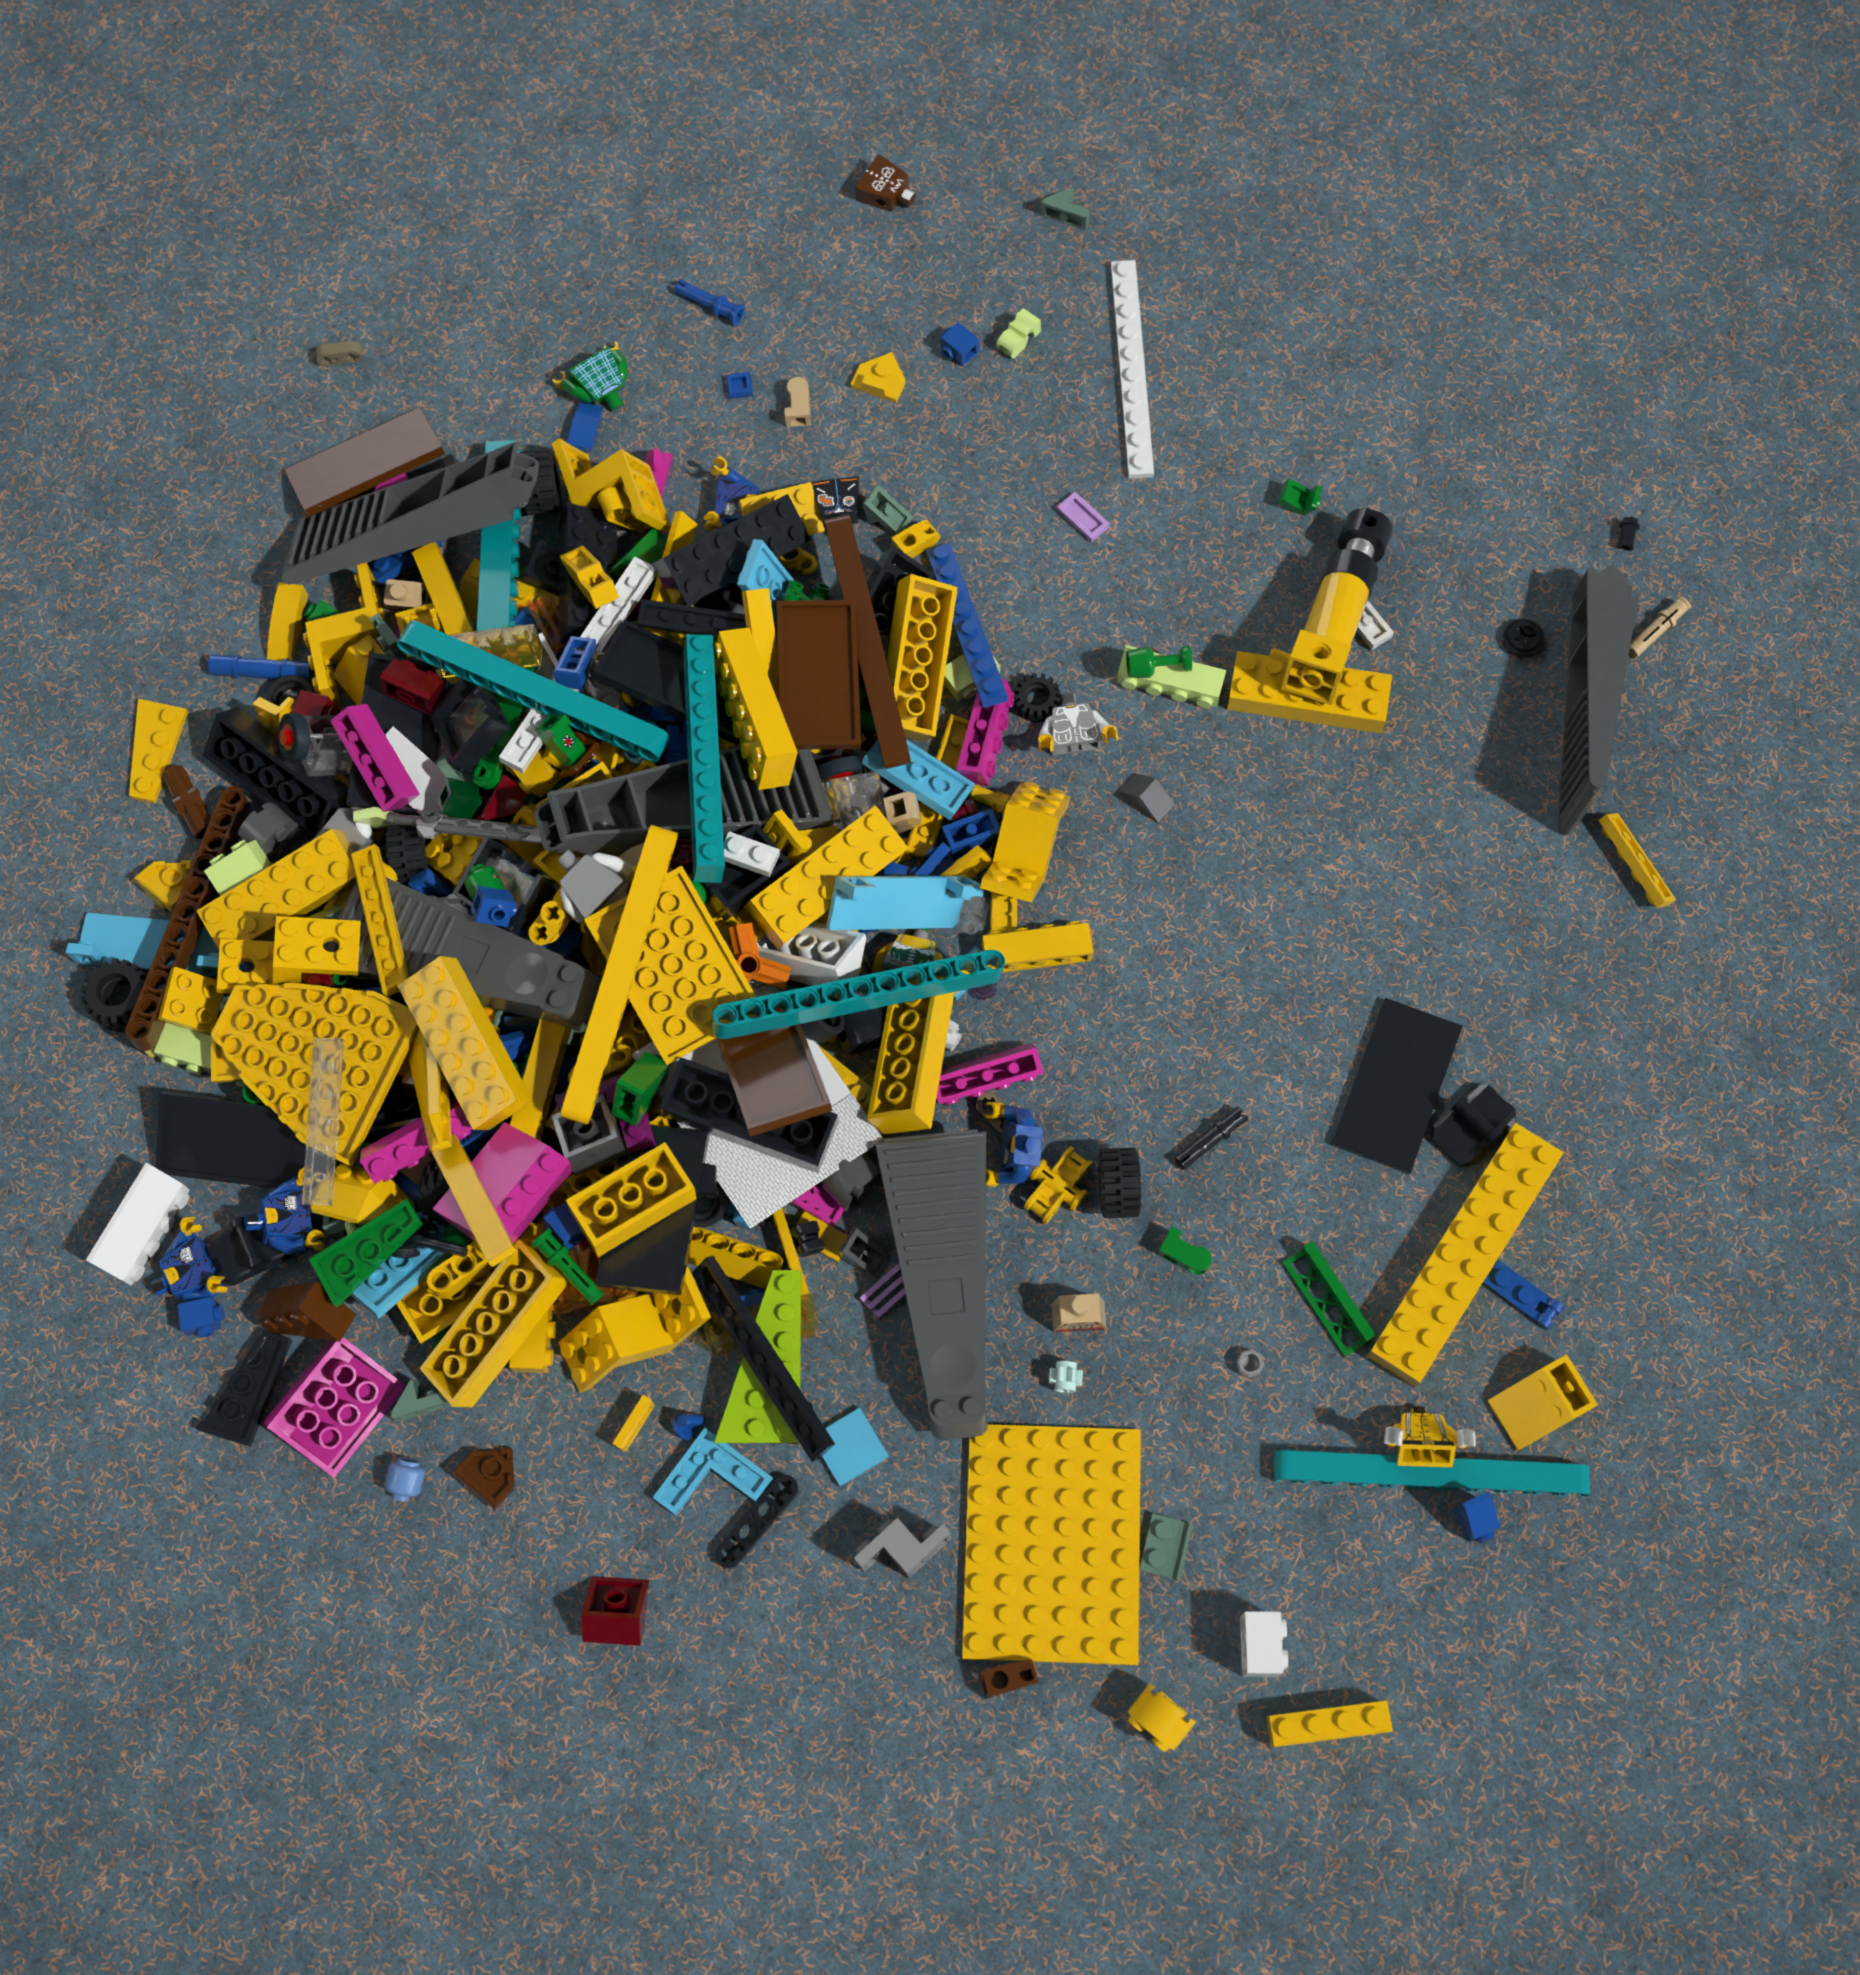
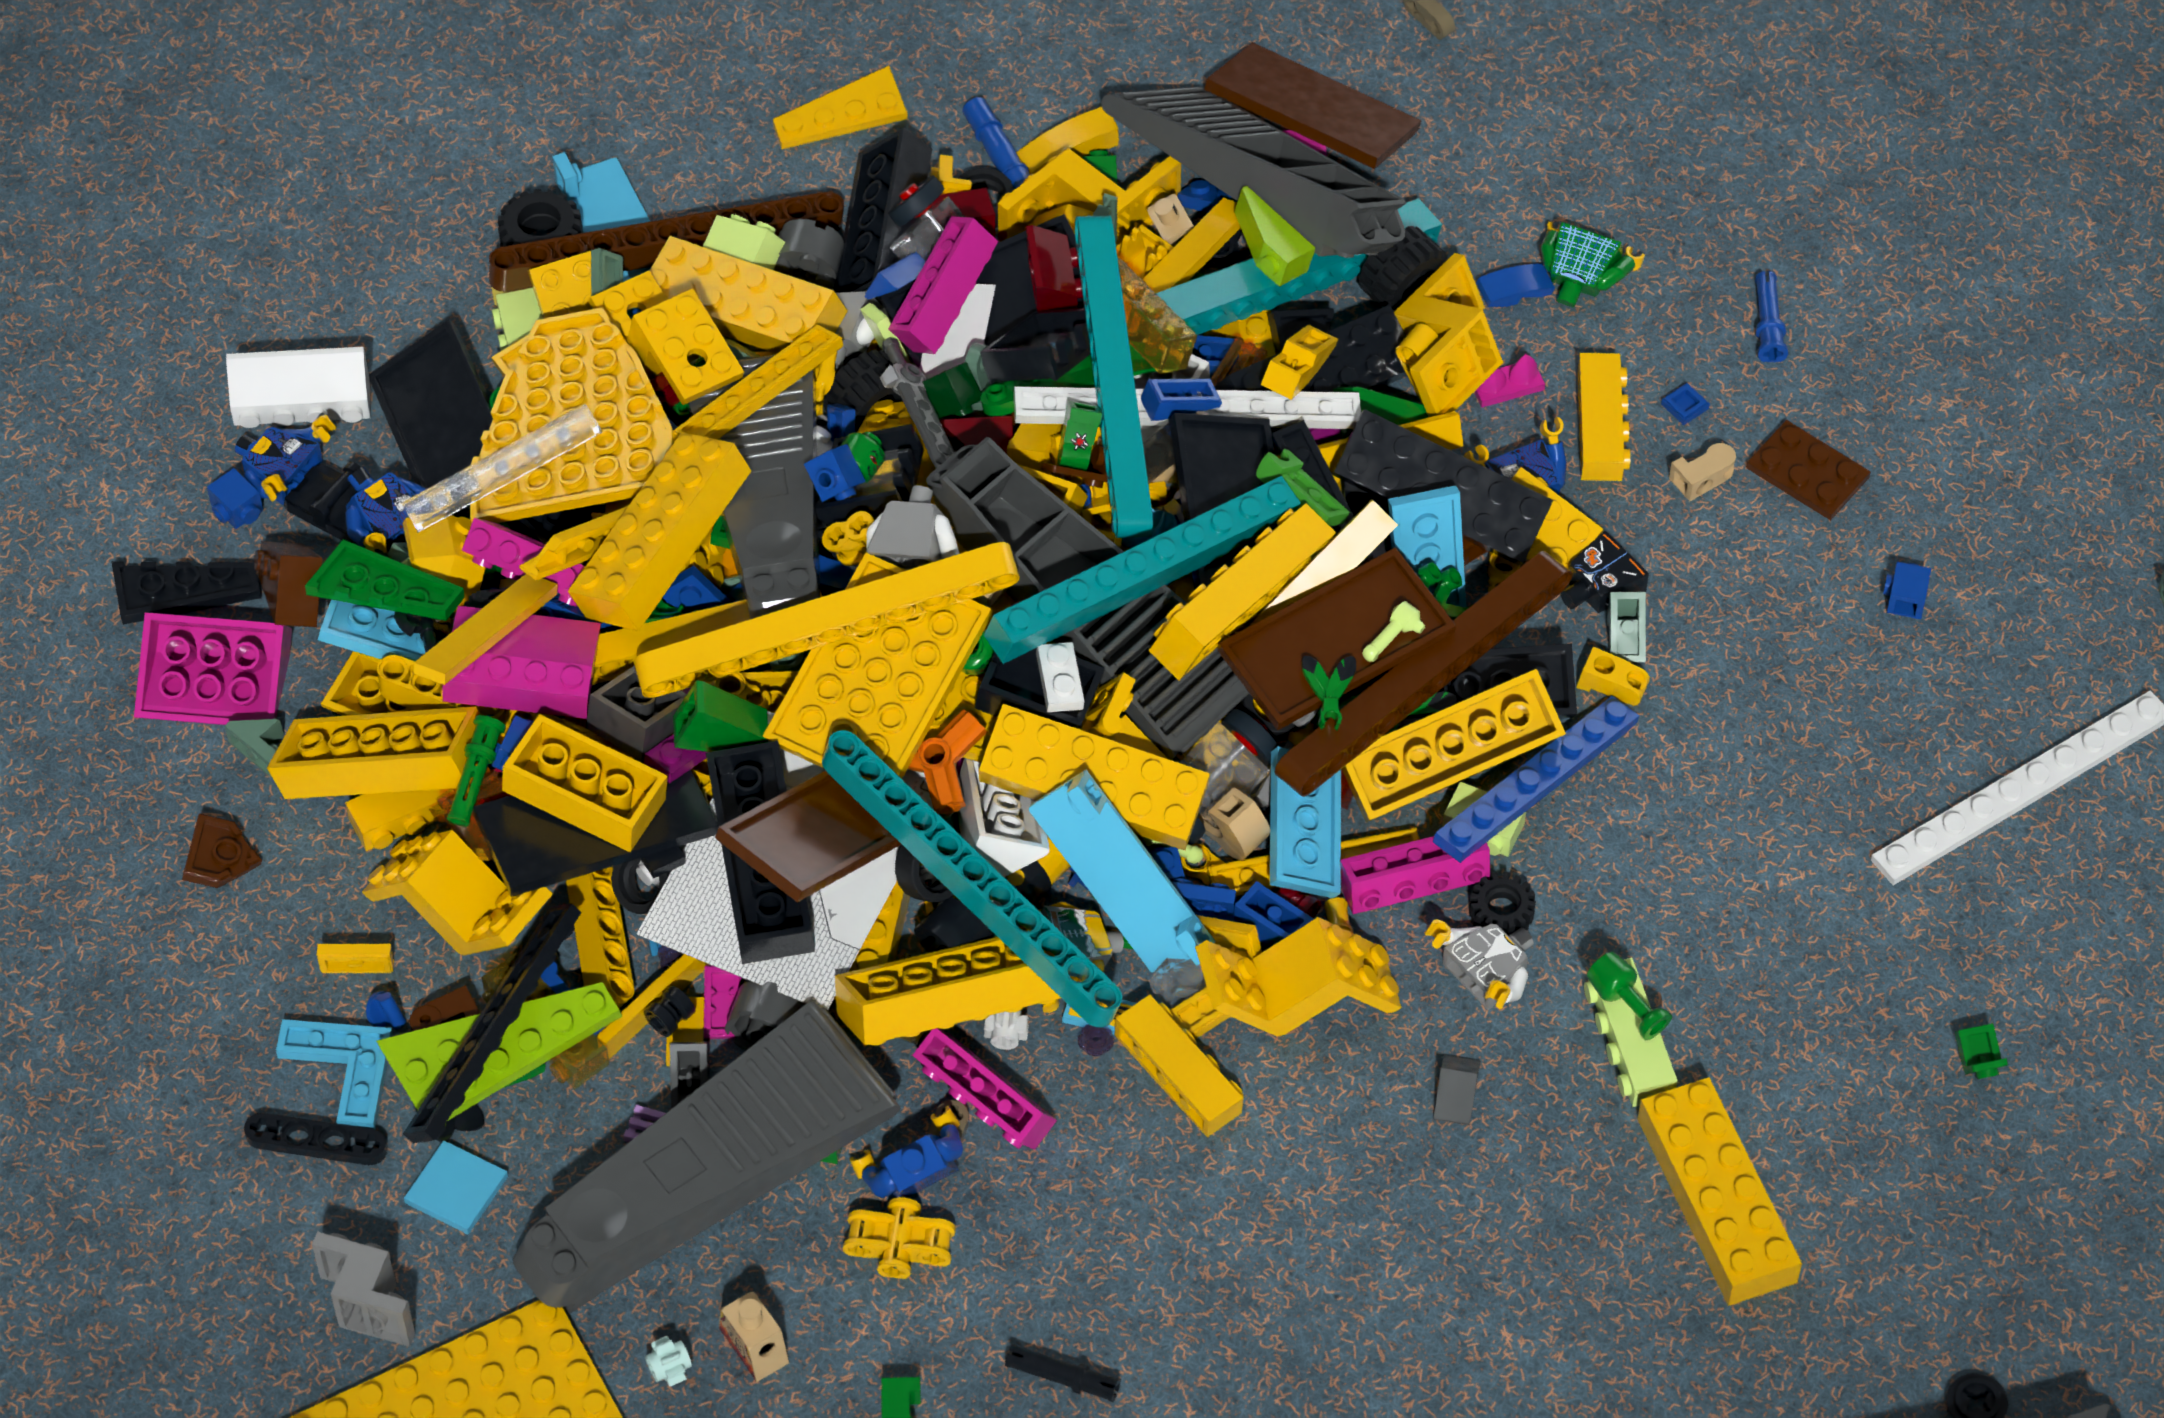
camera: 55 degrees right, 15 degrees down
(164, 882) = (695, 196): yellow plate -> none
(187, 800) = (804, 170): reddish brown piece -> none
(199, 970) = (605, 270): none -> sand green tile
(342, 782) = (896, 276): none -> blue slope
(404, 1478) = (167, 777): medium blue head -> none
(476, 540) = (1272, 241): none -> lime slope
(615, 1611) = (134, 1050): dark red slope -> none
(675, 632) = (1302, 485): none -> bright green plate
(715, 1386) = (444, 1009): none -> reddish brown leg
(720, 436) = (1601, 417): none -> yellow brick
(833, 626) = (1404, 619): none -> yellowish green piece
(834, 347) = (1808, 470): none -> reddish brown plate
(856, 700) = (1329, 690): none -> green piece
(880, 378) = (1804, 536): yellow plate -> none
(884, 186) = (2059, 405): reddish brown torso -> none
(1016, 336) = (1960, 643): yellowish green leg -> none
(1083, 517) = (1779, 836): lavender tile -> none
(1119, 1182) = (934, 1289): black tyre -> none
(1344, 590) = (1742, 1152): yellow piece -> none
(1373, 627) = (1865, 1212): white plate -> none

